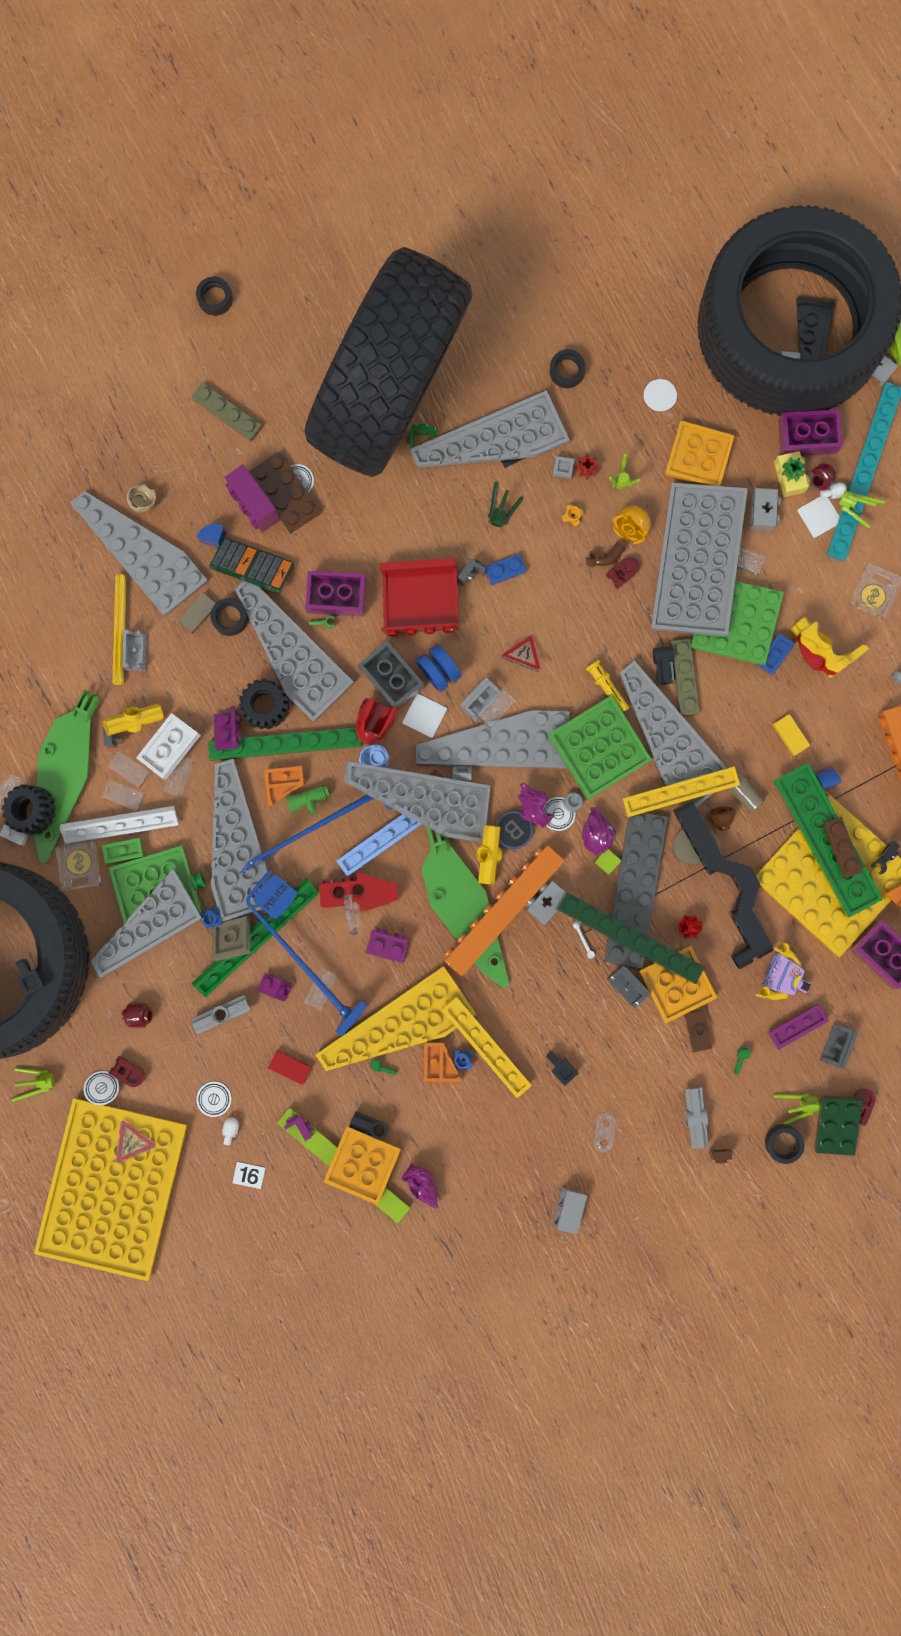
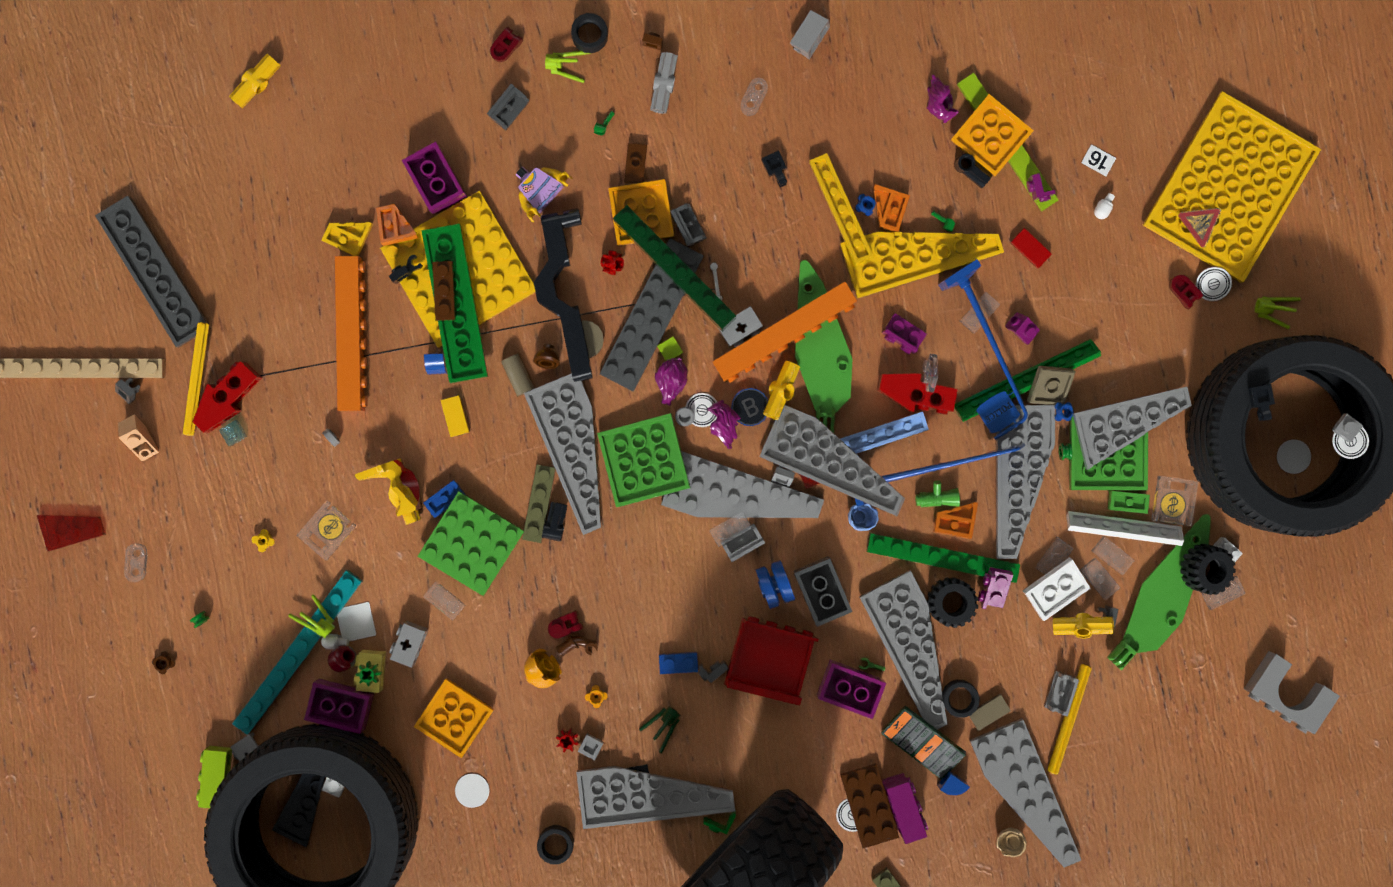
camera: 170 degrees left, 5 degrees up
(137, 1015) = (1160, 341): dark red head -> none
(210, 1020) = (1070, 318): light grey piece -> none
(213, 1099) = (1110, 241): white sticker -> none
(374, 721) = (852, 552): red hair -> none
(424, 715) = (800, 544): white sticker -> none
(524, 654) = (687, 573): piece -> none
(602, 679) = (619, 526): yellow pin -> none
(622, 479) = (536, 716): lime plant -> none
(681, 792) = (580, 392): yellow plate -> none
(699, 559) = (488, 614): light grey plate -> none
(798, 1026) = (540, 137): magenta plate -> none
(838, 1125) = (533, 34): dark green plate -> none

